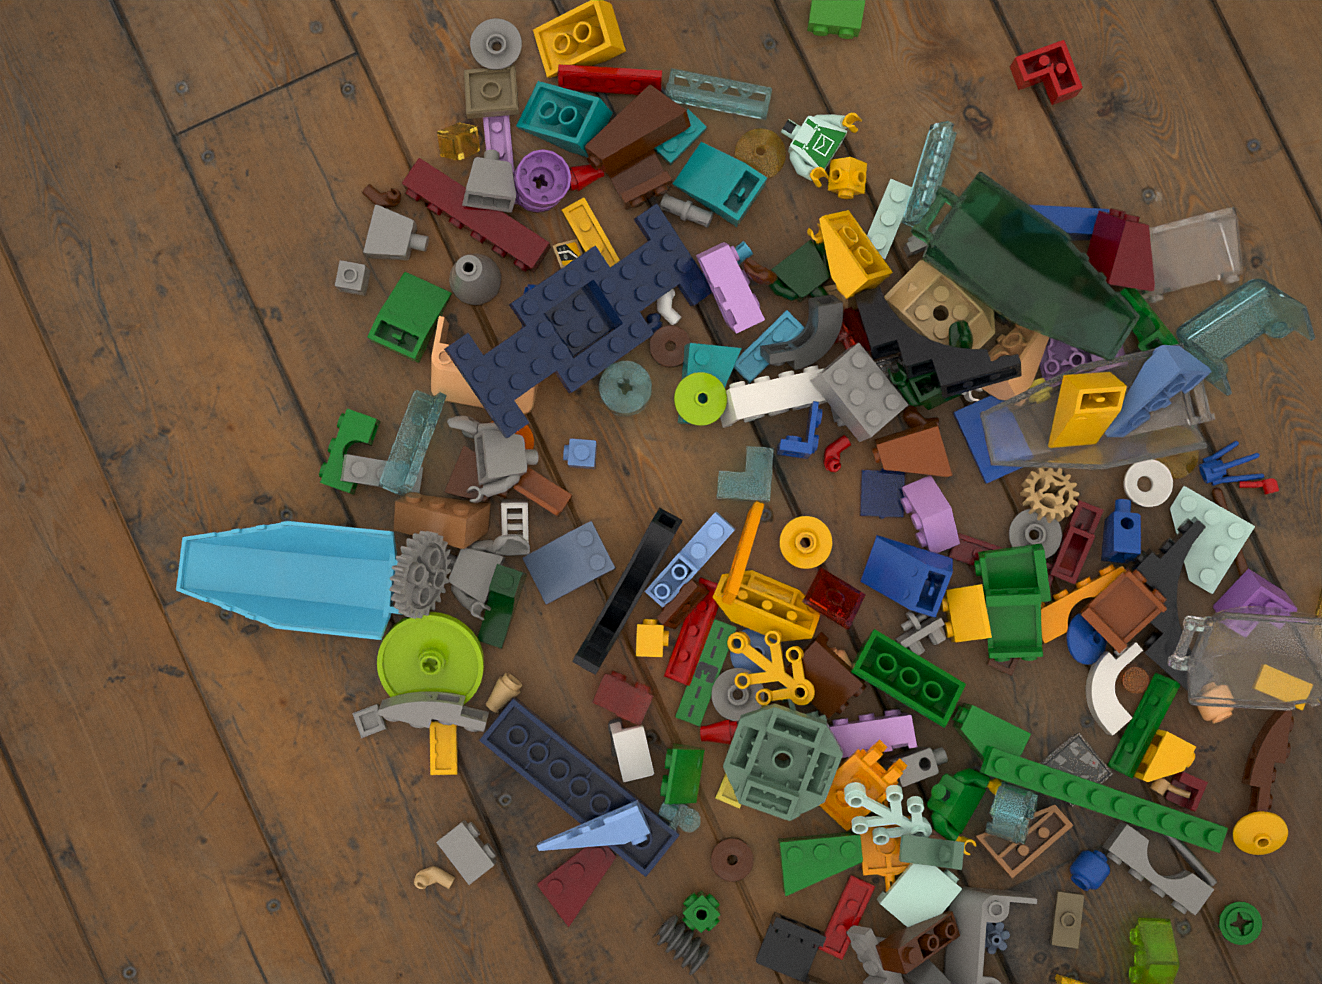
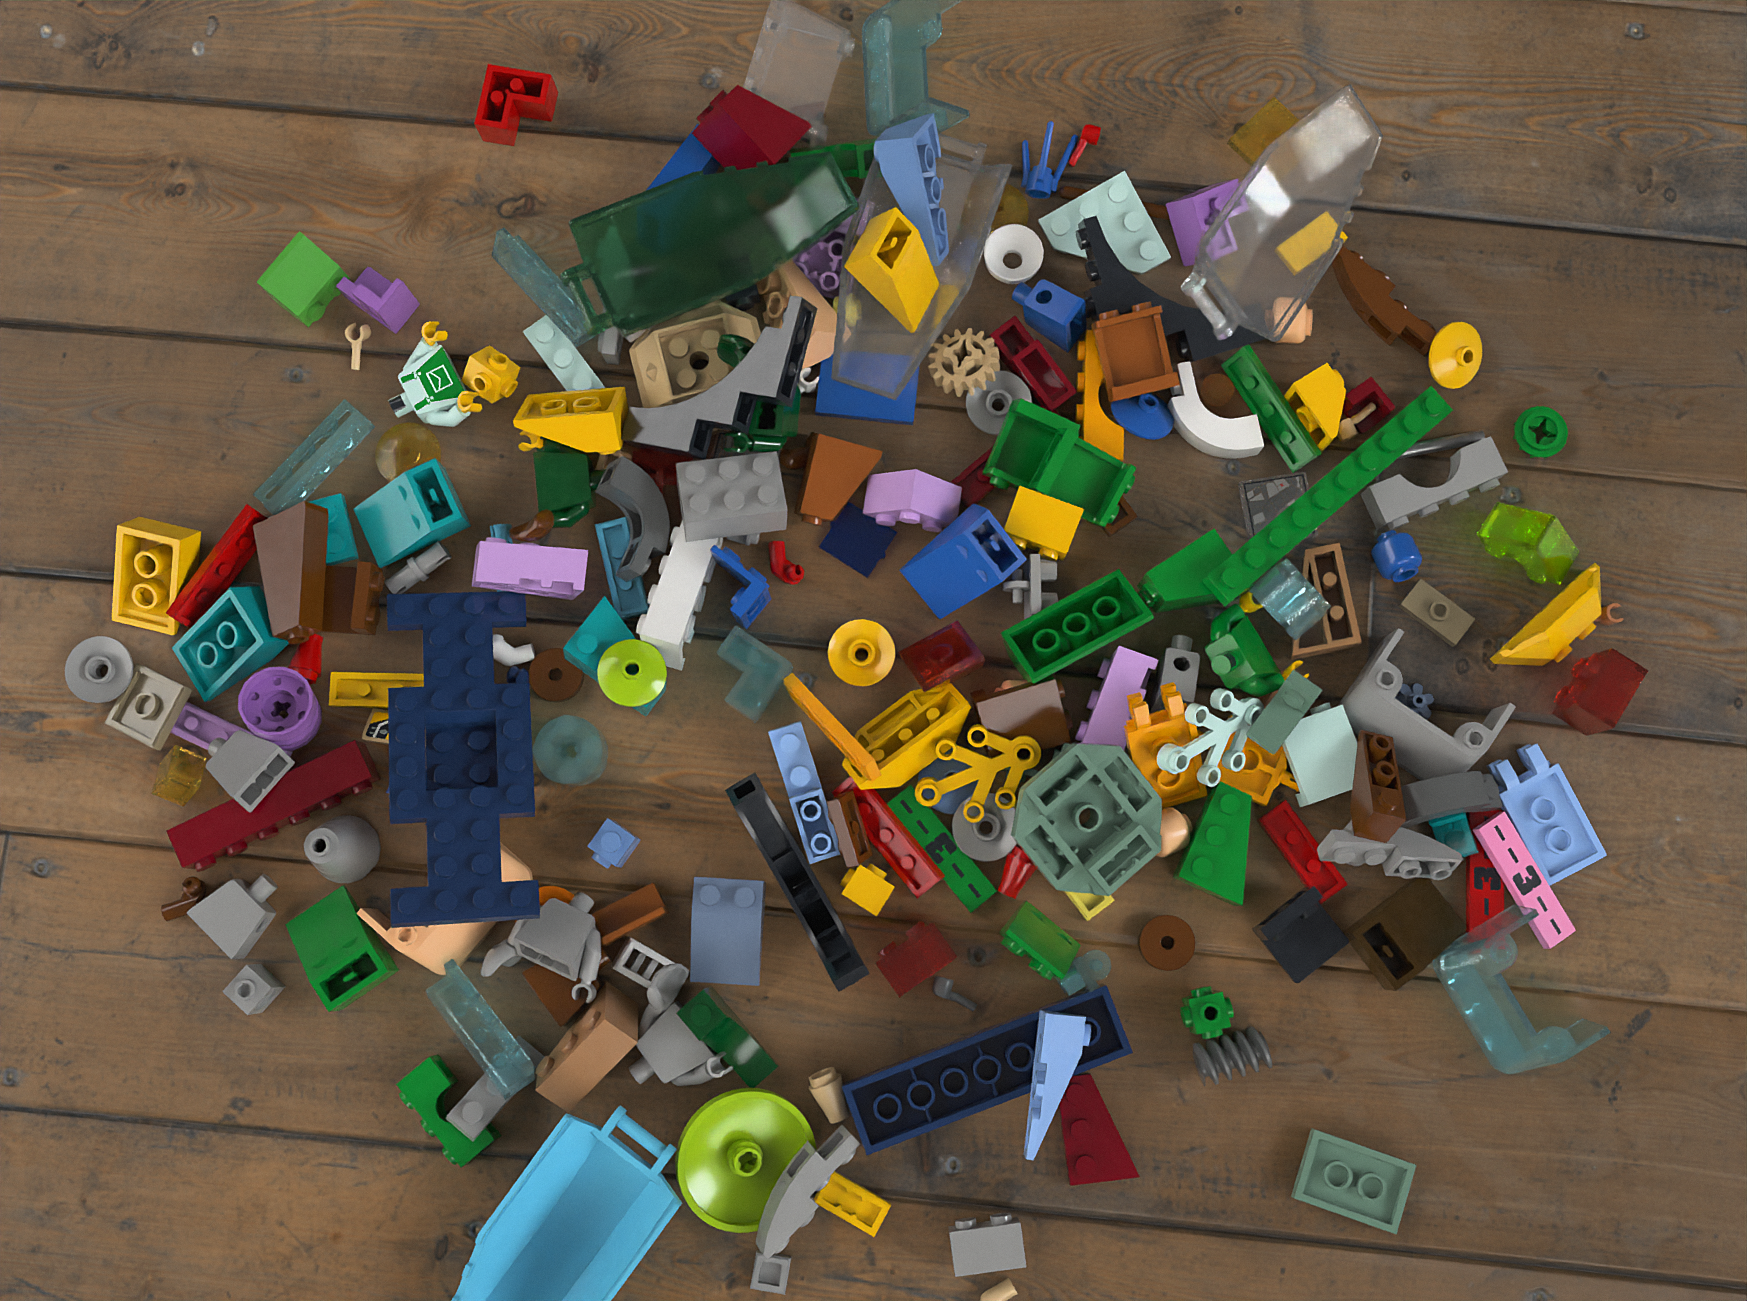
camera: 60 degrees left, 5 degrees down
(420, 574) = (634, 1111): light grey gear -> none
(632, 752) = (981, 984): white panel -> none
(808, 822) = (1174, 831): none -> light nougat head
(817, 70) = (356, 341): none -> tan hand
(856, 67) = (381, 299): none -> medium lavender panel

